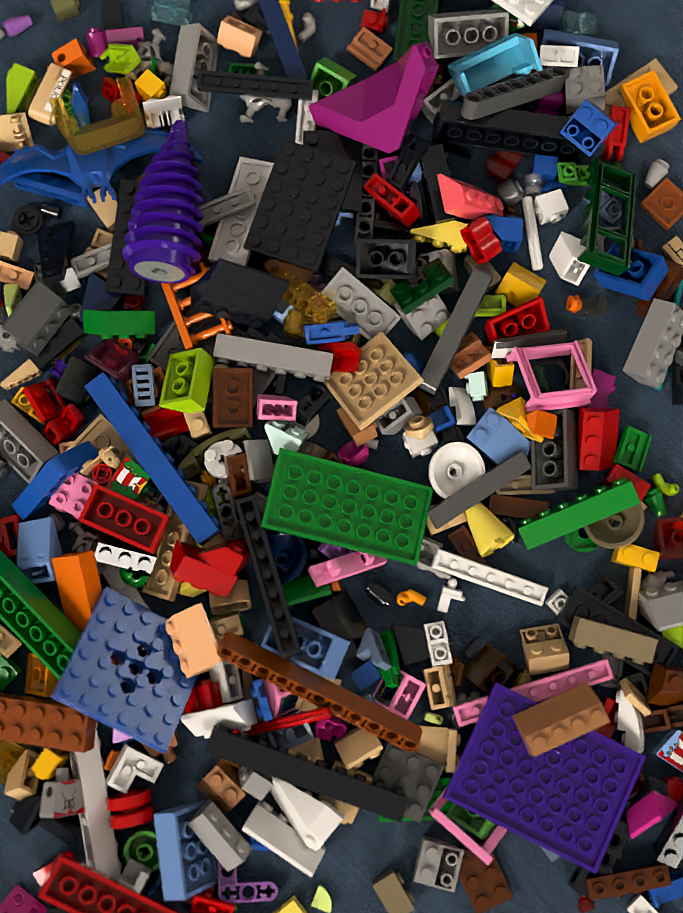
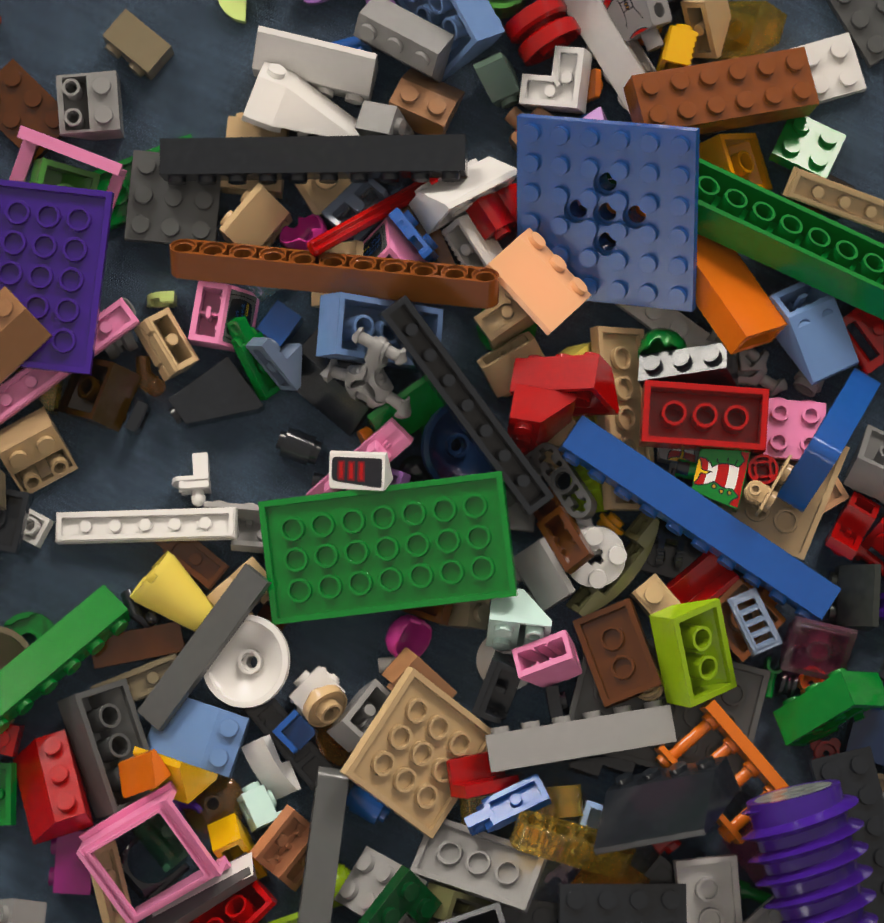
camera: 160 degrees right, 0 degrees up
(170, 784) = (499, 80): none -> sand green slope
(321, 614) = (370, 380): none -> light grey piece
(348, 560) = (359, 470): none -> slope
(409, 596) = (253, 460): light orange arm -> none
(438, 644) = (190, 402): white slope -> none
(440, 745) = (140, 265): tan bracket -> none

